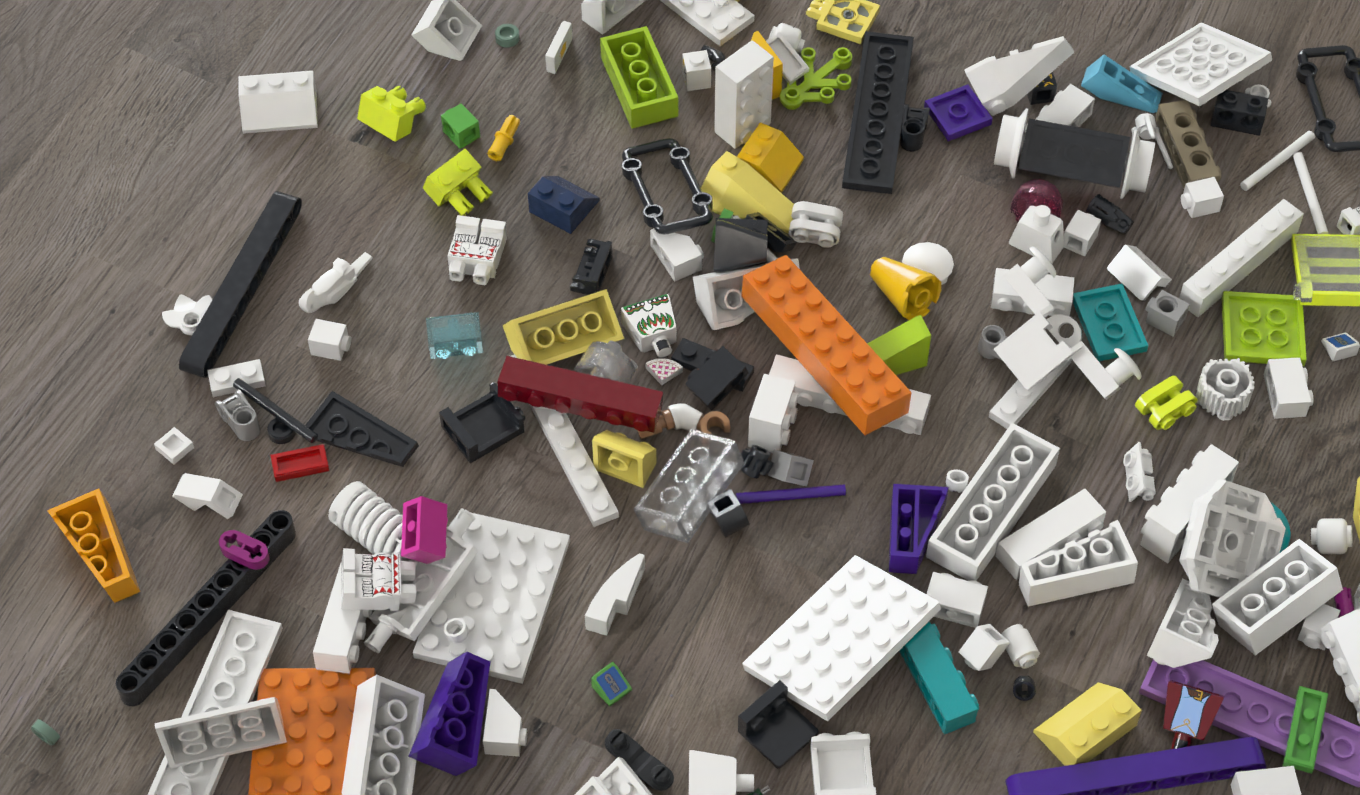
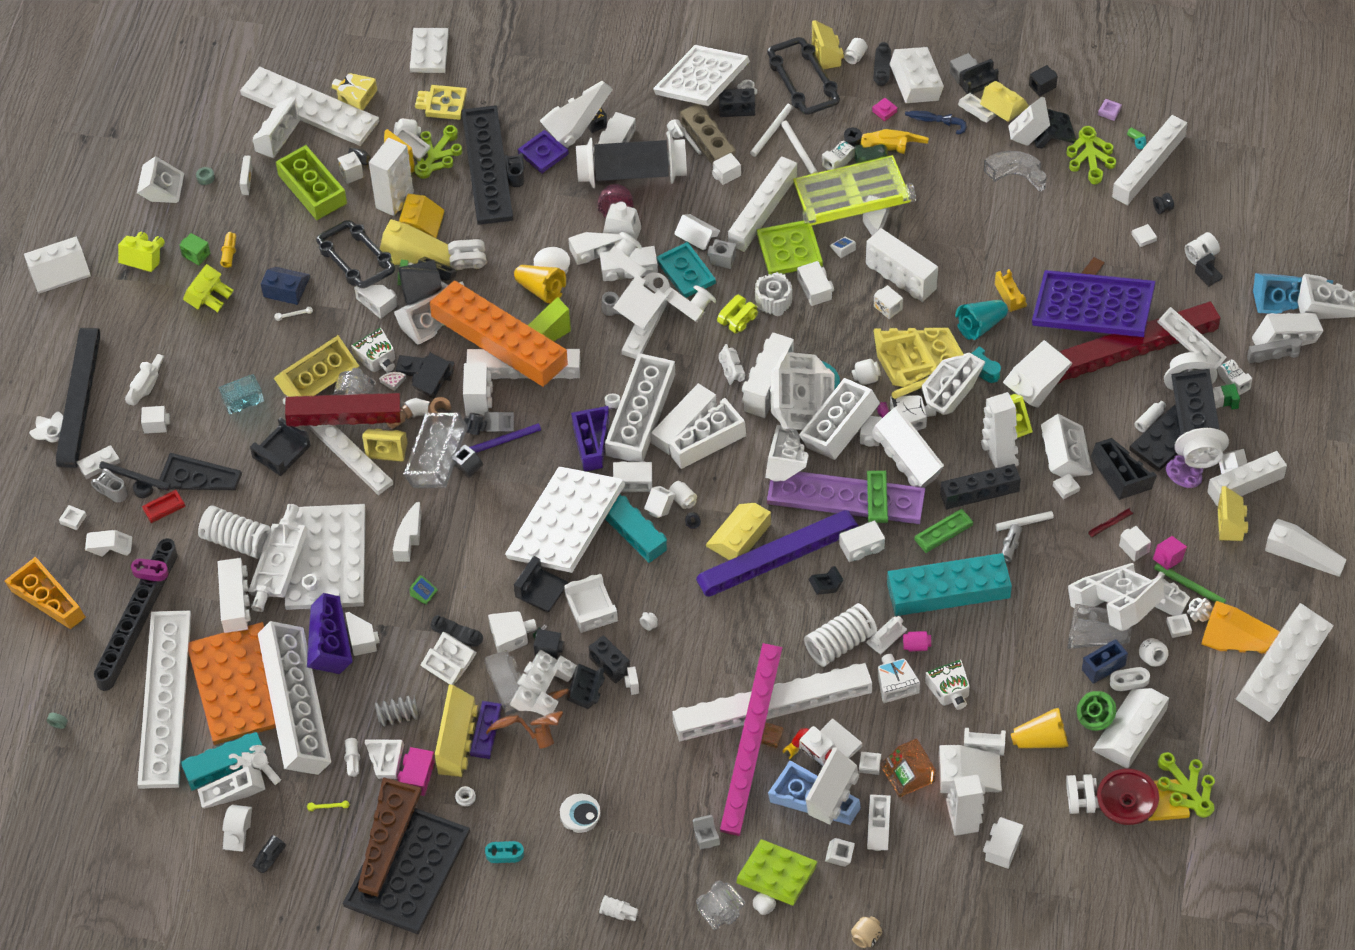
camera: 15 degrees left, 0 degrees up
(221, 732) = (179, 684): white slope -> none
(375, 581) = (246, 565): white hips -> none
(424, 530) = (269, 523): dark pink brick -> none
(476, 249) = (237, 338): white hips -> none
(540, 244) = (278, 316): none -> white hinge
(592, 267) = (321, 323): black hinge -> none
(983, 254) = (588, 245): none -> white slope
(1081, 232) = (650, 214): white brick -> none
(1114, 219) = (672, 198): black hinge -> none
(1118, 85) = (649, 104): medium azure slope -> none
(1189, 712) = (801, 505): torso -> none

